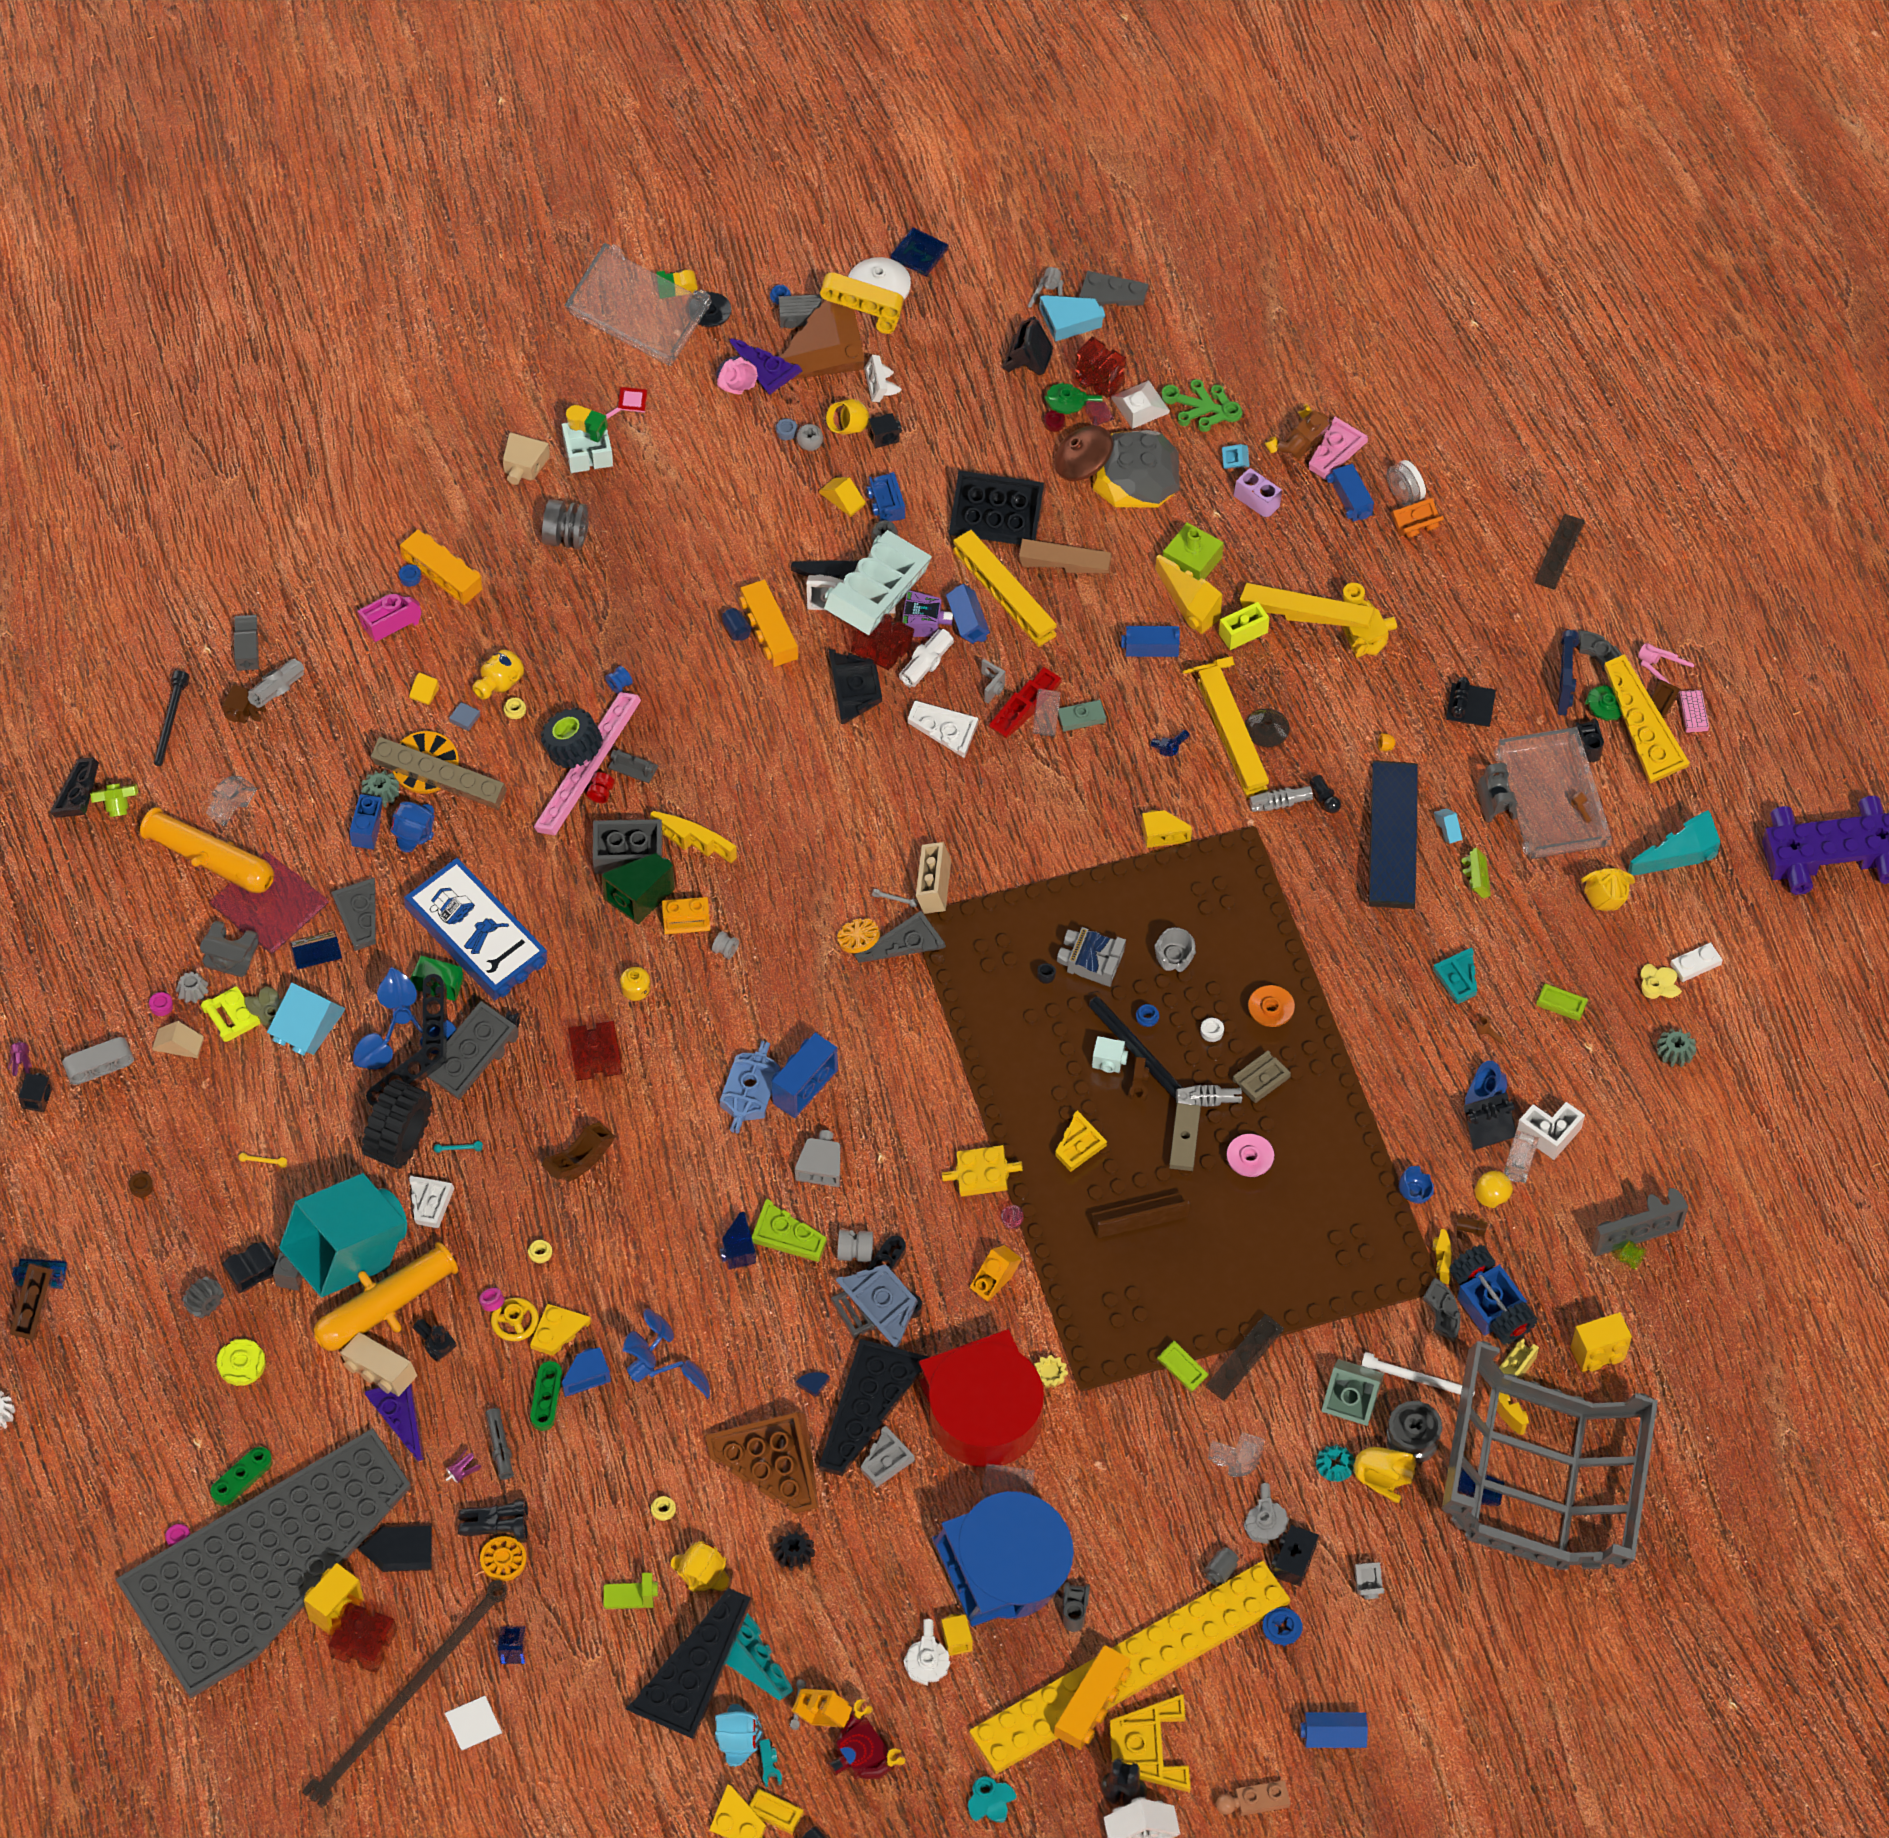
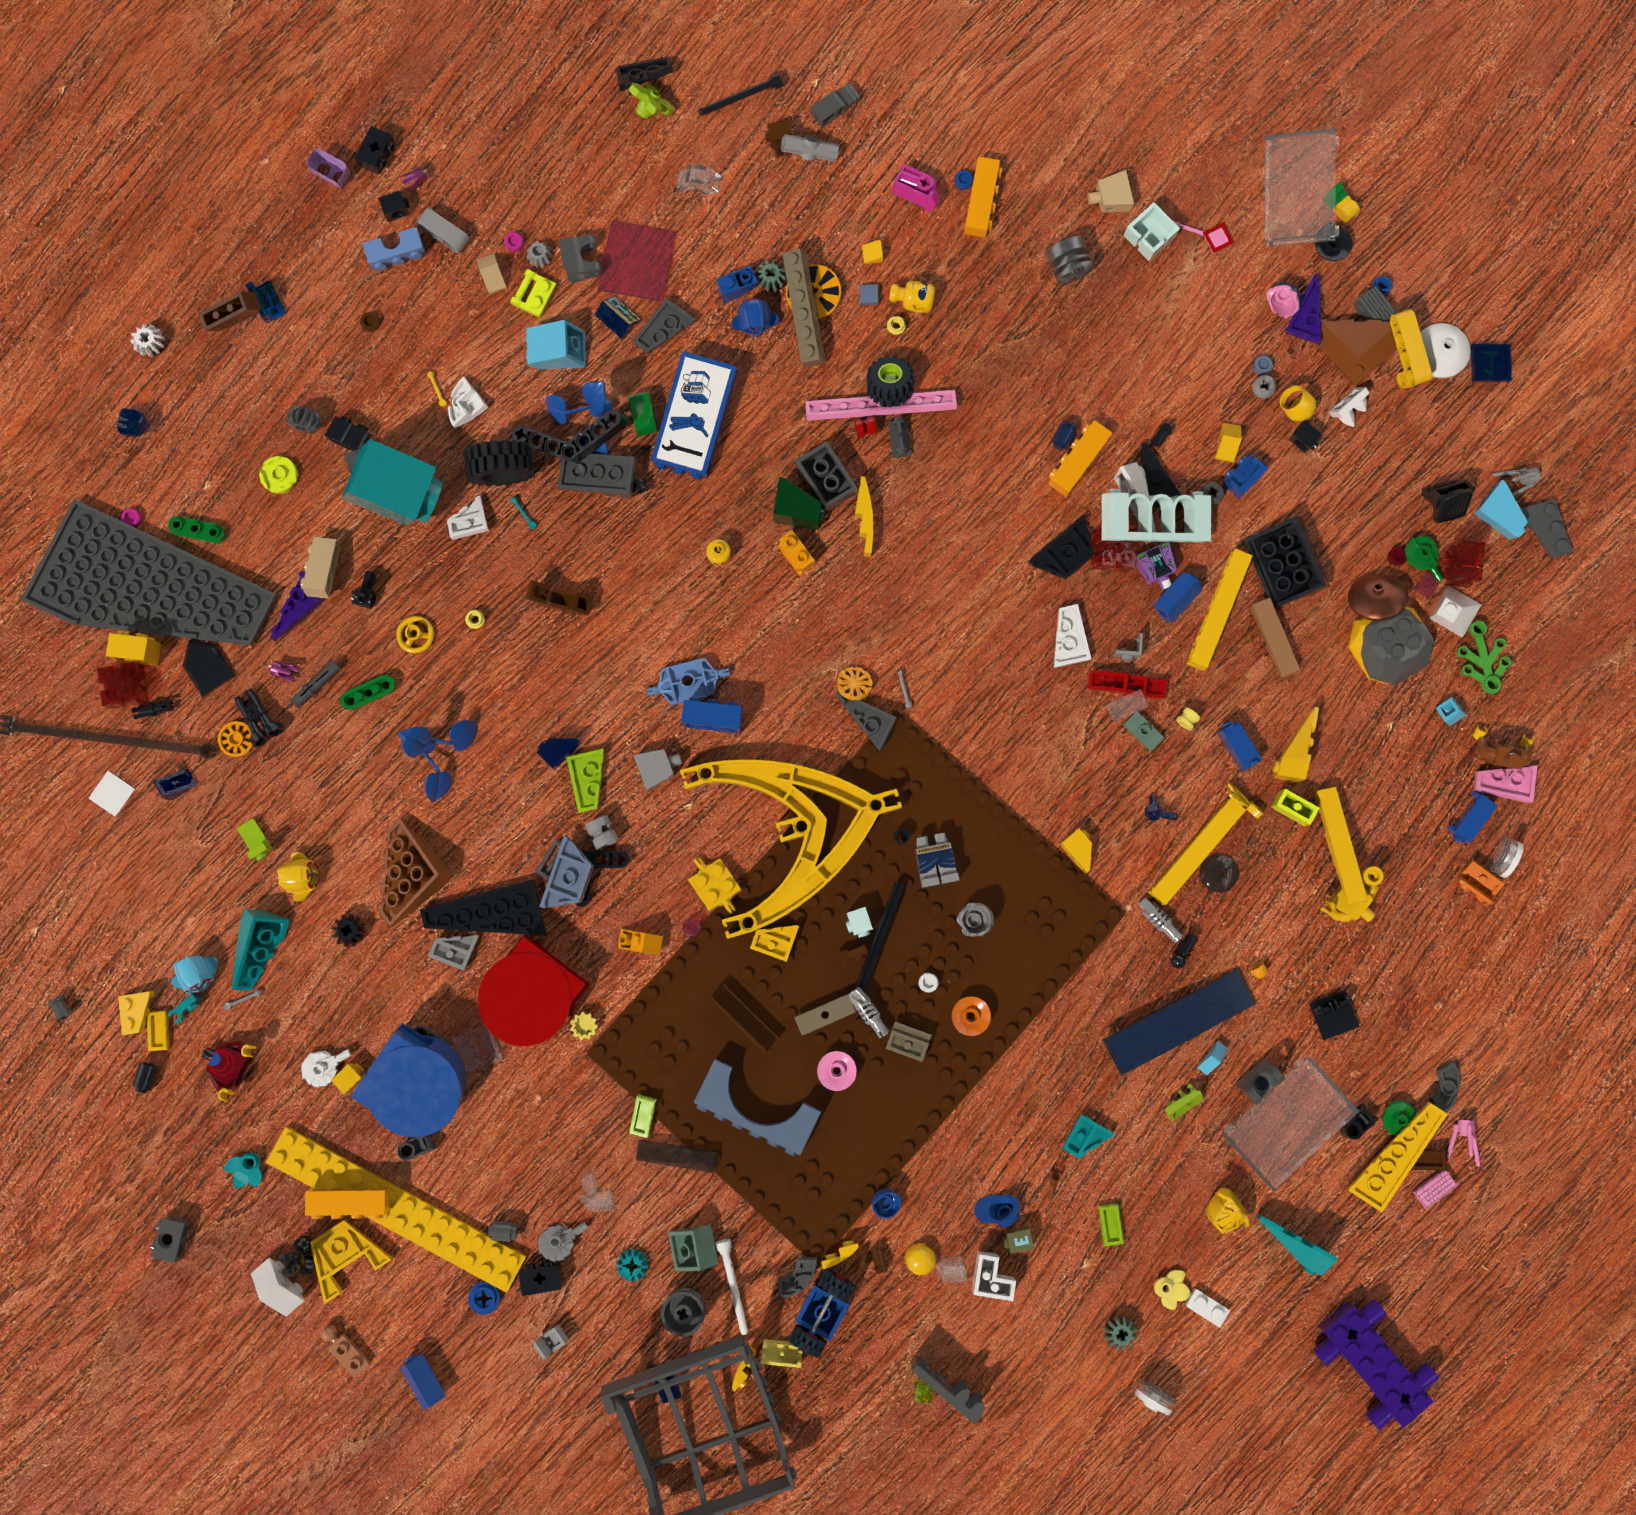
camera: 60 degrees right, 25 degrees up
(74, 1473) = (132, 422): none -> clear blue hair
(79, 1134) = (409, 248): none -> medium blue arch
(208, 851) = (643, 194): light orange piece -> none
(264, 1005) = (552, 311): olive plate -> none
(299, 1139) = (465, 403): none -> white brick
(383, 1299) = (372, 539): light orange piece -> none
(410, 1625) = (152, 709): none -> black pin
(491, 1299) = (419, 610): dark pink tile -> none
(557, 1328) = (424, 667): yellow wing -> none
(586, 1372) = (401, 708): blue slope -> none
(588, 421) = (1164, 214): leg -> none
(595, 1050) = (649, 558): clear red brick -> none
(618, 679) = (964, 382): blue wheel -> none
(663, 1502) = (326, 820): light yellow plate -> none
(689, 1677) = (209, 919): black wing -> none
(725, 945) = (789, 595): light grey wheel -> none
(792, 540) = (1161, 435): none -> black pin
(813, 1382) = (484, 866): dark blue tile -> none
(822, 1708) = (240, 1018): light orange window -> none
(926, 658) = (1121, 589): white piece -> none
(927, 1044) = (778, 781): none -> yellow piece
(933, 877) = (931, 709): tan brick -> none
(1095, 668) = (1188, 719): none -> light yellow wheel
(1150, 1010) = (917, 929): blue plate -> none
(1194, 551) = (1338, 731): lime brick -> none
(1207, 1280) = (716, 1097): none -> sand blue arch
(1258, 503) = (1419, 738): lavender piece -> none
(1385, 1470) = (640, 1304): yellow hair -> none
(1490, 1120) = (972, 1229): black hinge -> none
(1527, 1087) = (1018, 1239): none -> olive brick
(1559, 551) = (1520, 1006): clear smoke tile -> none
(1569, 640) = (1393, 1081): dark blue plate -> none
(1577, 803) = (1294, 1144): dark orange hand -> none
(1601, 1342) = (831, 1411): yellow brick -> none
(1757, 1045) = (1155, 1397): none -> clear piece

